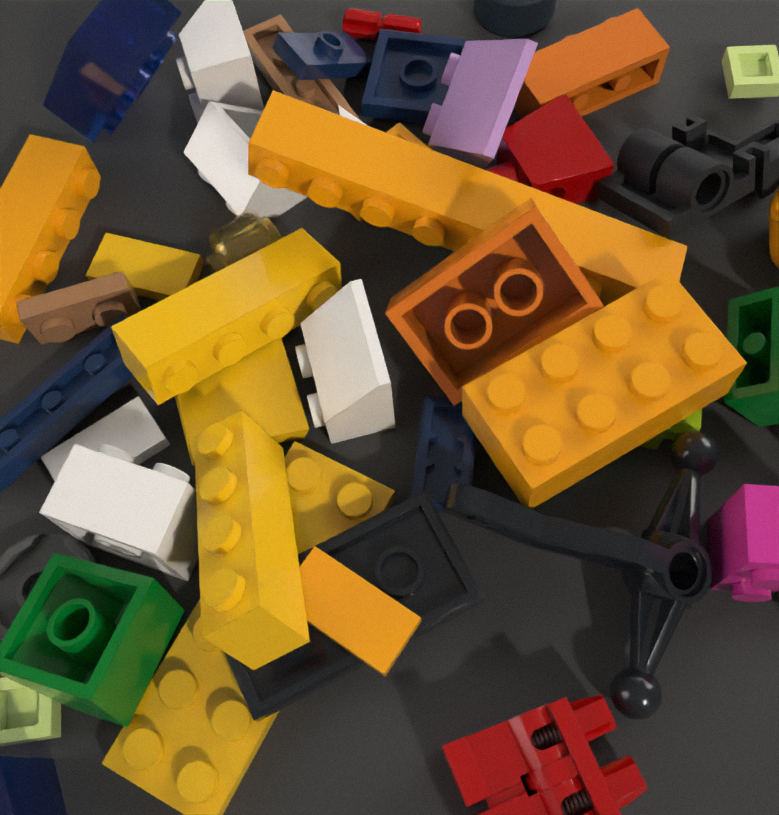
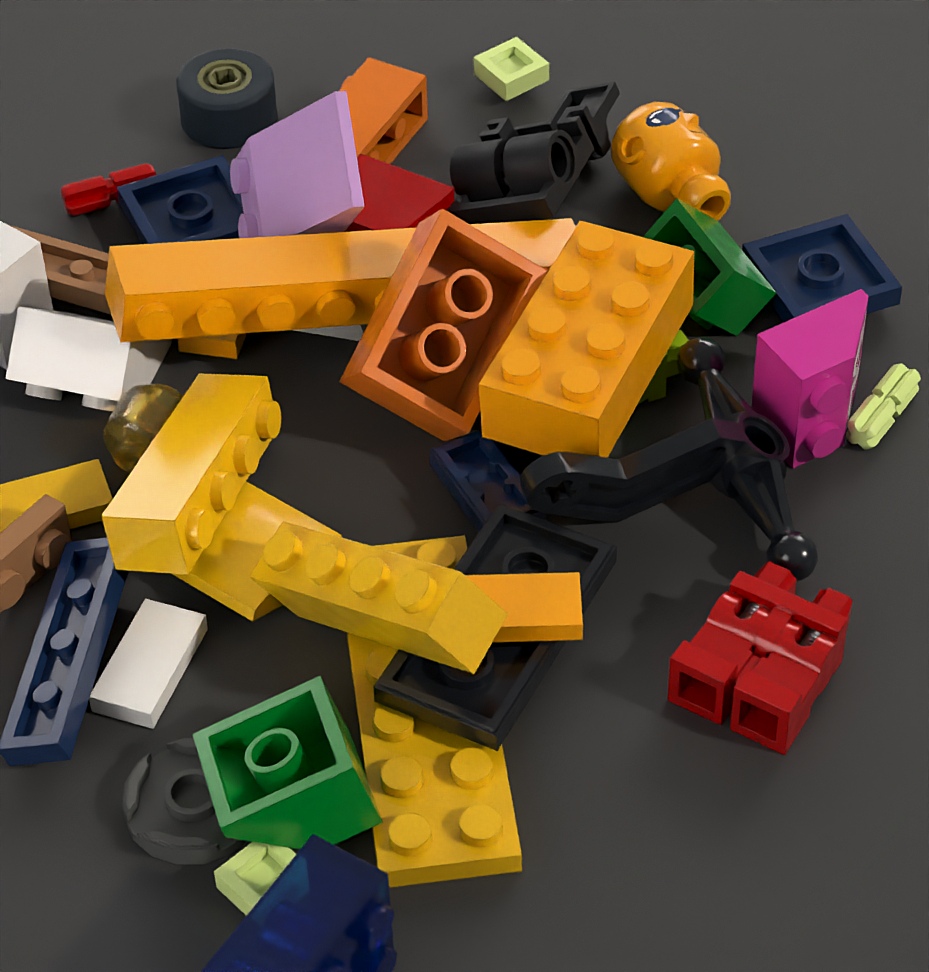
camera: 40 degrees left, 20 degrees down
(127, 509) = (240, 647): white brick -> none
(322, 55) = (81, 231): dark blue plate -> none
(346, 367) = (345, 453): white slope -> none

